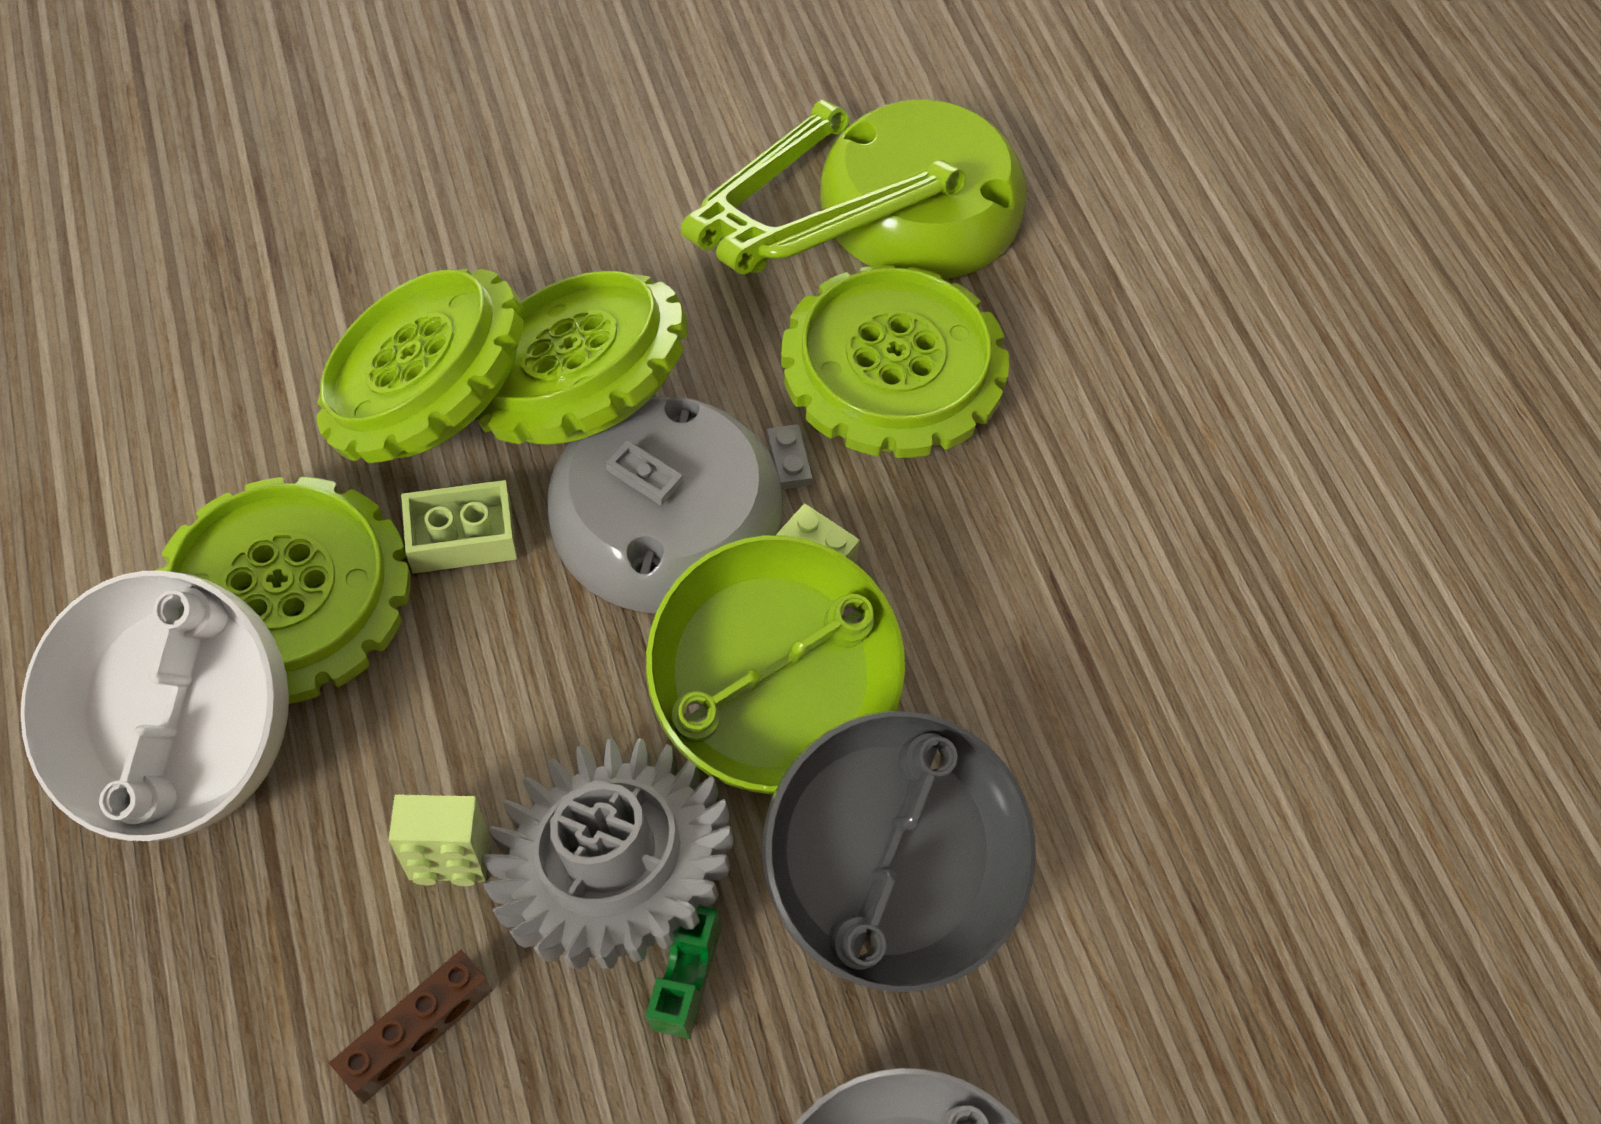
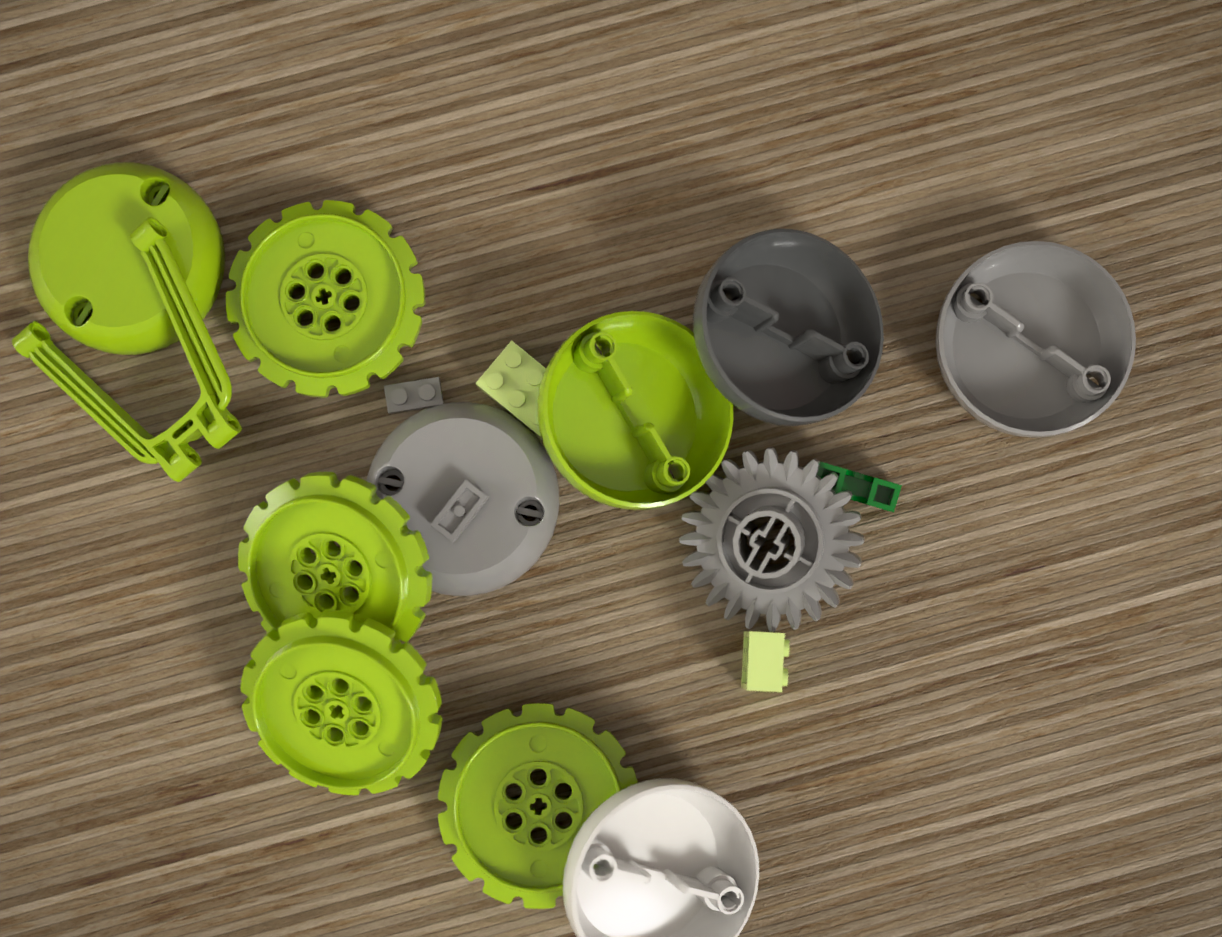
camera: 80 degrees left, 25 degrees up
(411, 1026) = (888, 676): reddish brown brick -> none
(458, 526) = (484, 666): yellowish green brick -> none

